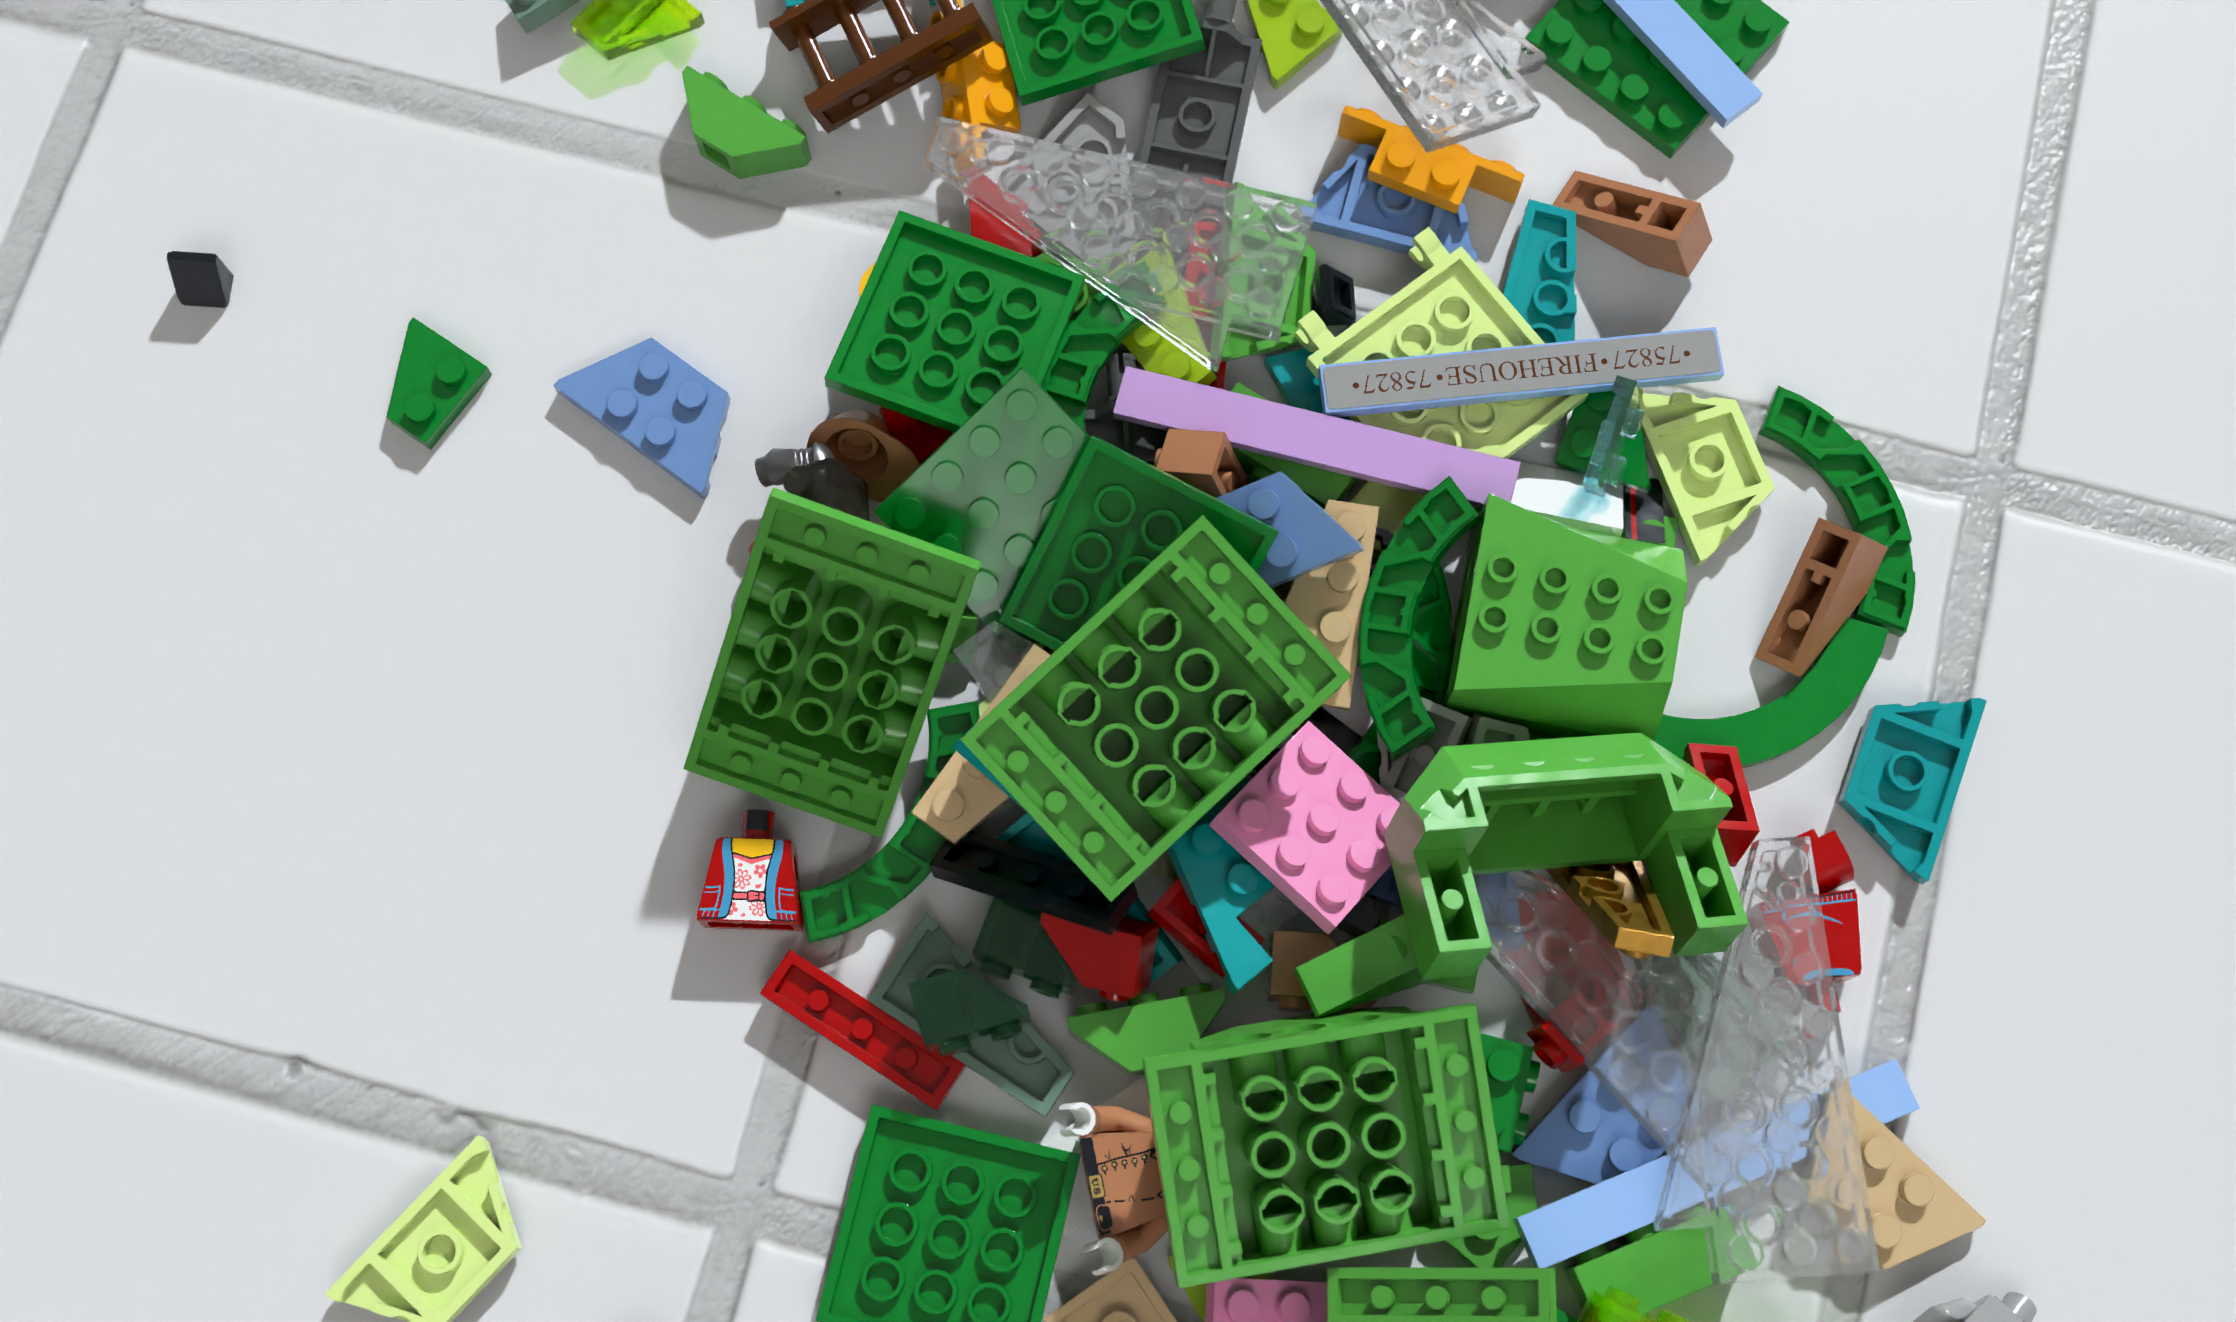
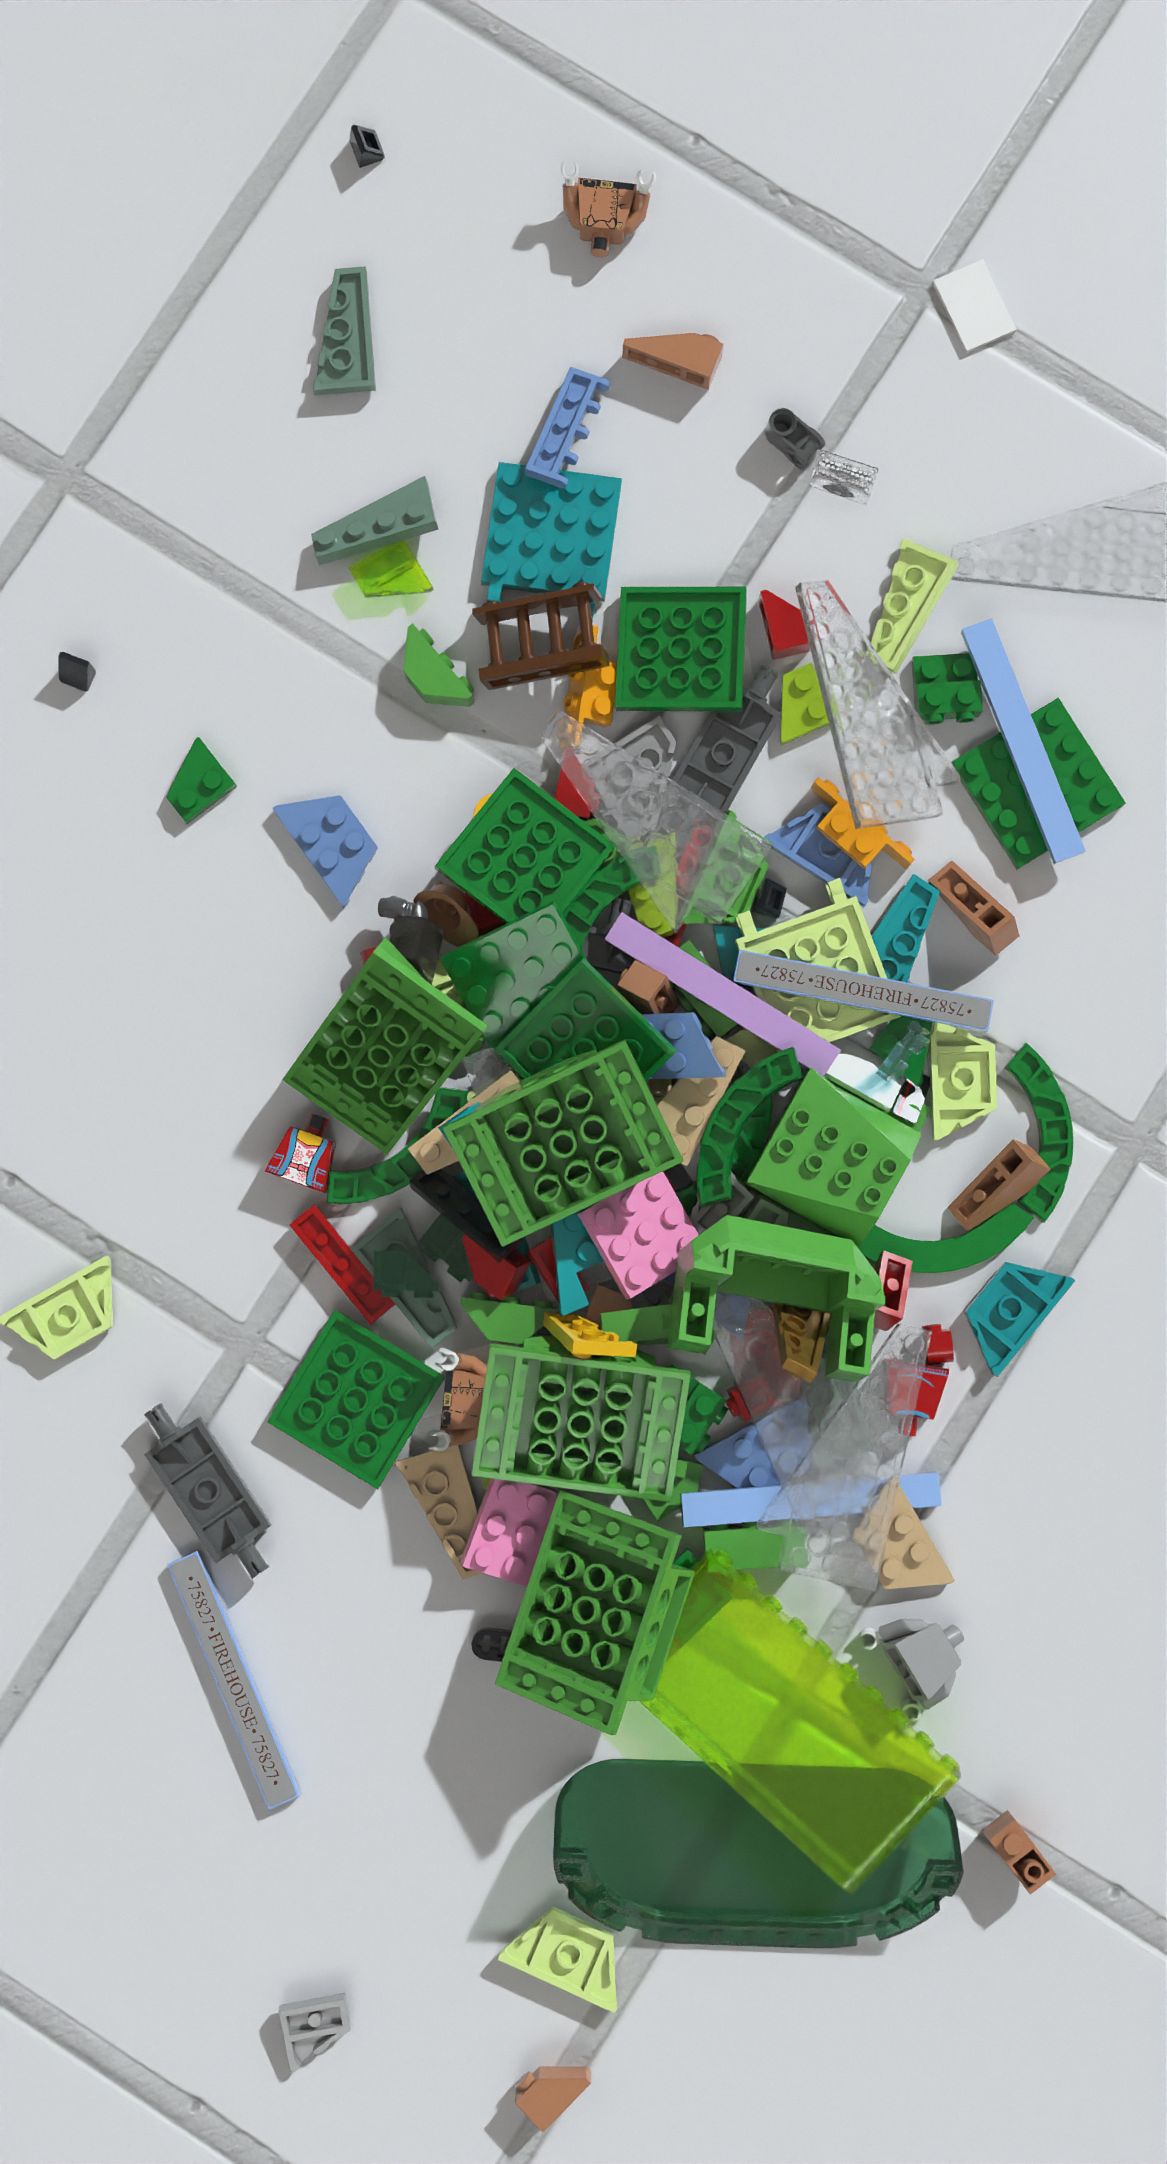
camera: 20 degrees right, 10 degrees up
(1288, 1009) = (584, 1338): none -> yellow wing

